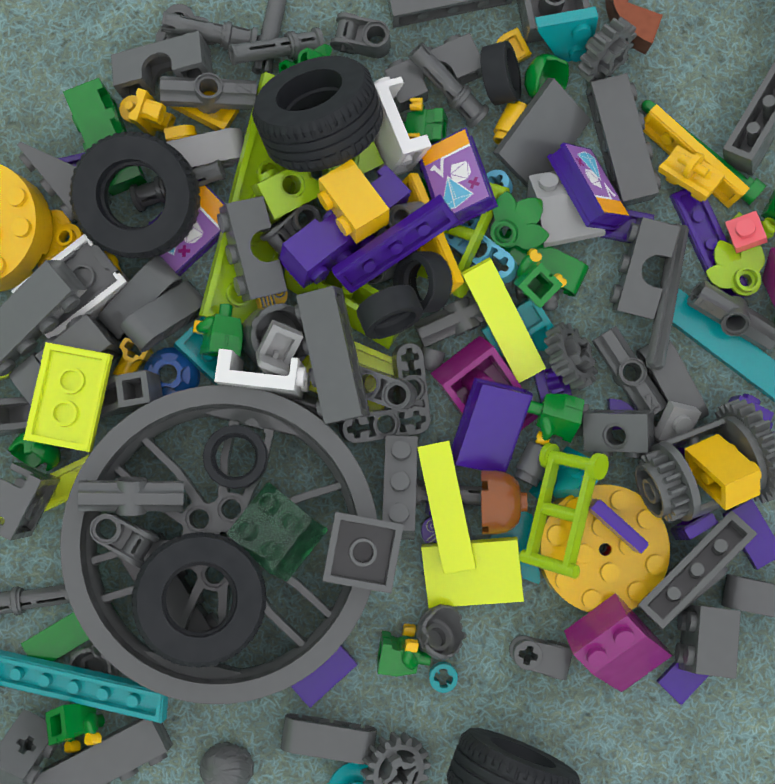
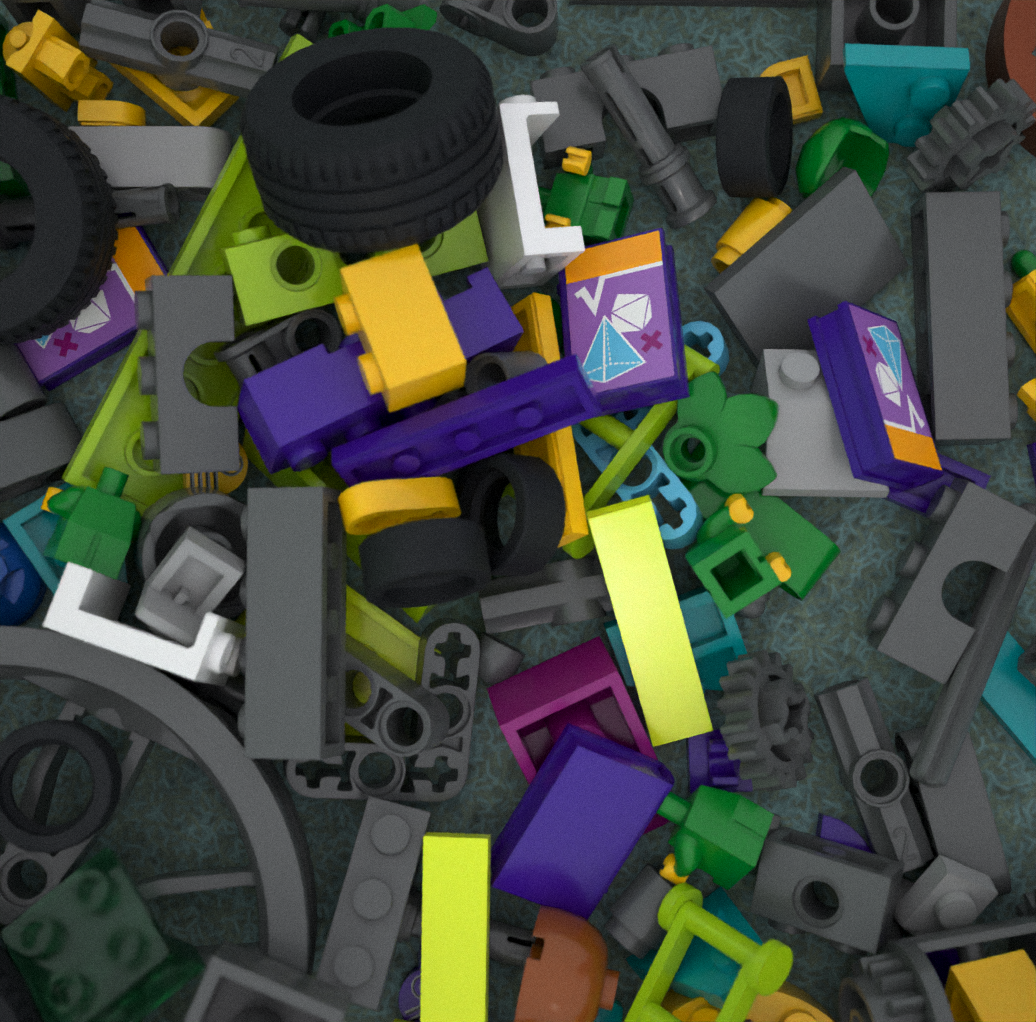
camera: 10 degrees right, 0 degrees up
(362, 287) = (388, 503): none -> yellow beam

